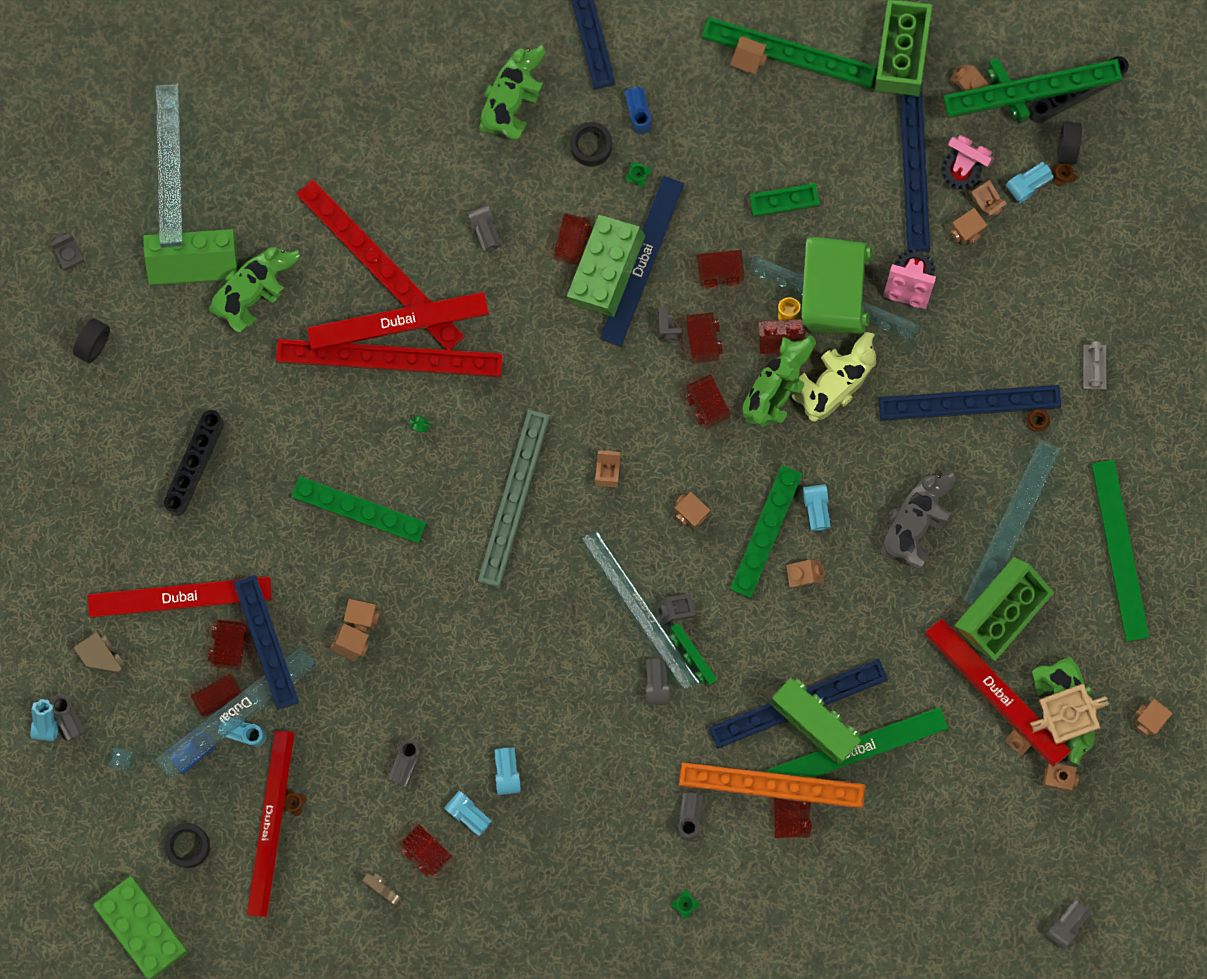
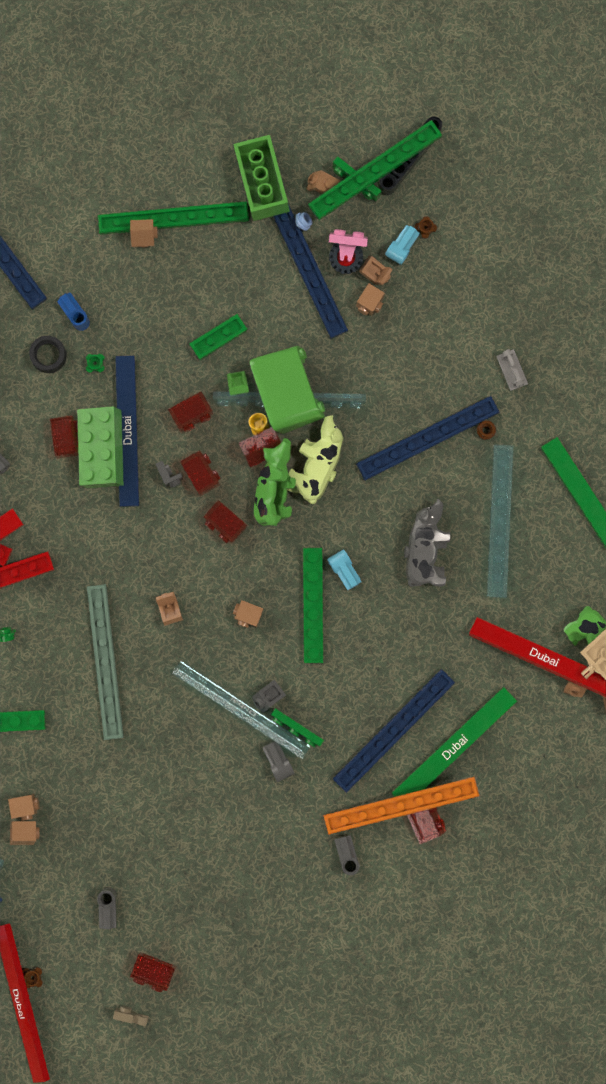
camera: 30 degrees left, 5 degrees up
(464, 810) = (168, 926): medium azure piece -> none
(507, 776) = (192, 885): medium azure piece -> none
(678, 904) = (366, 928): green plate -> none
(784, 257) = (237, 383): none -> bright green plate
(805, 573) = (357, 626): medium nougat bracket -> none
(815, 721) = (417, 743): bright green brick -> none
(911, 279) = (343, 359): bright pink plate -> none
(930, 112) = (303, 221): none -> light blue plate
(1004, 609) = (522, 590): bright green brick -> none
(1069, 143) = (421, 201): black tyre -> none

